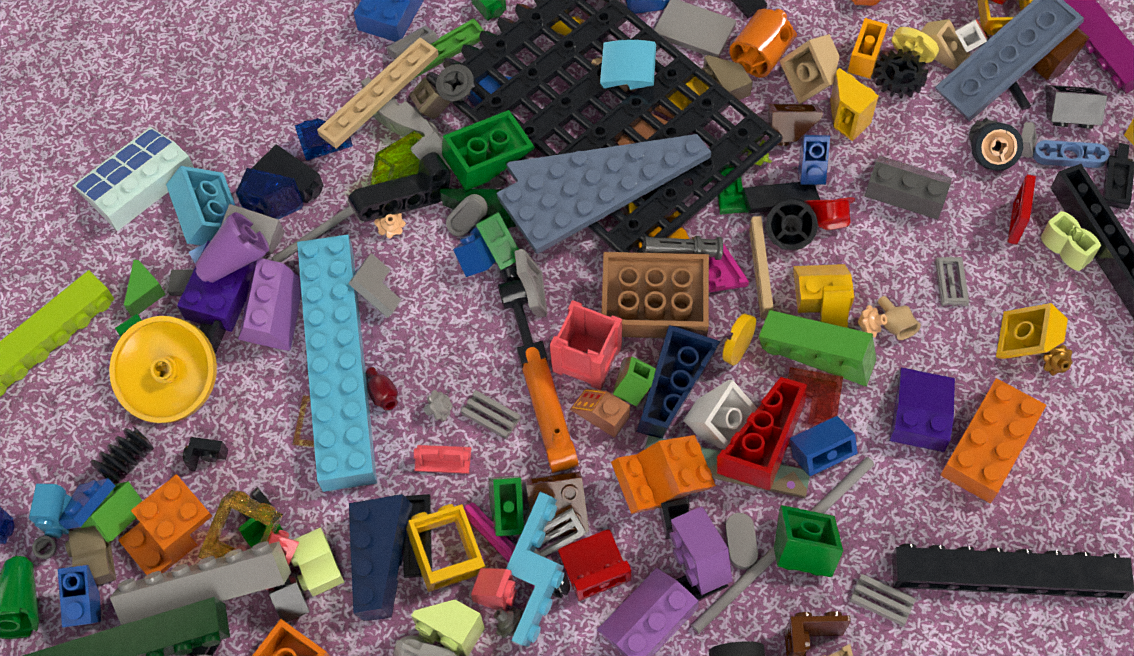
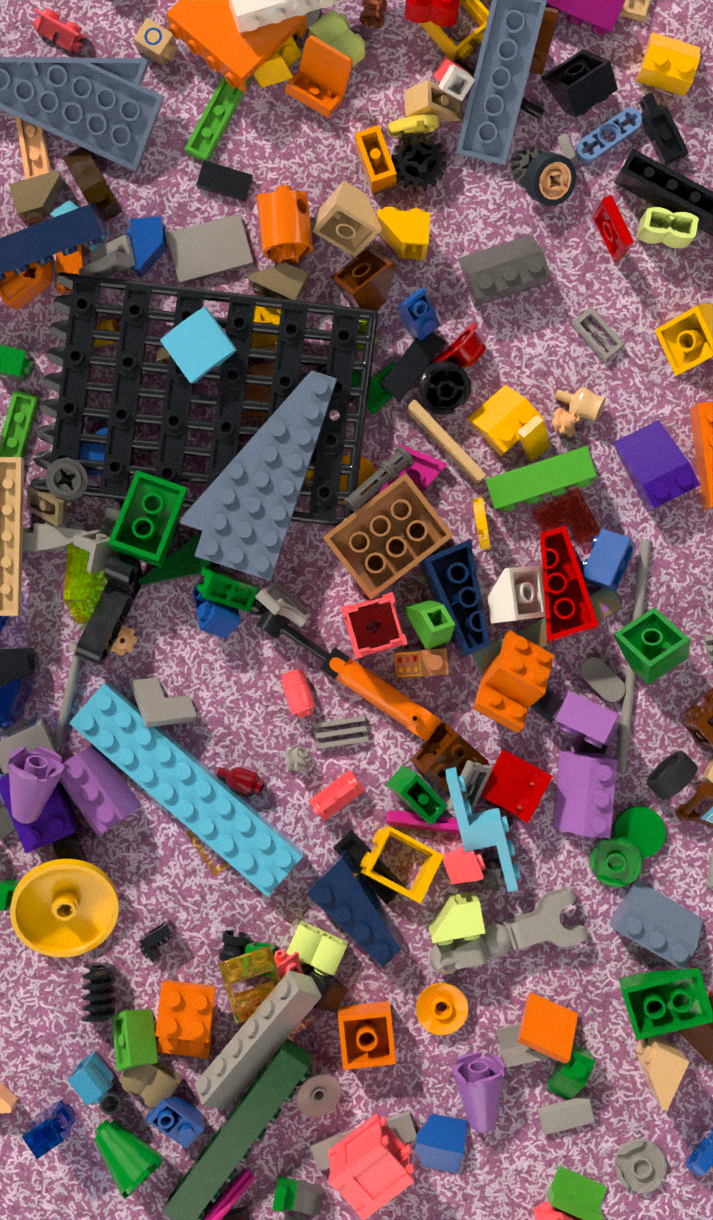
camera: 40 degrees left, 25 degrees up
(84, 502) = (111, 1055): blue wing -> none
(466, 215) = (179, 586): light grey tile -> none
(484, 358) = (298, 693): none -> coral head

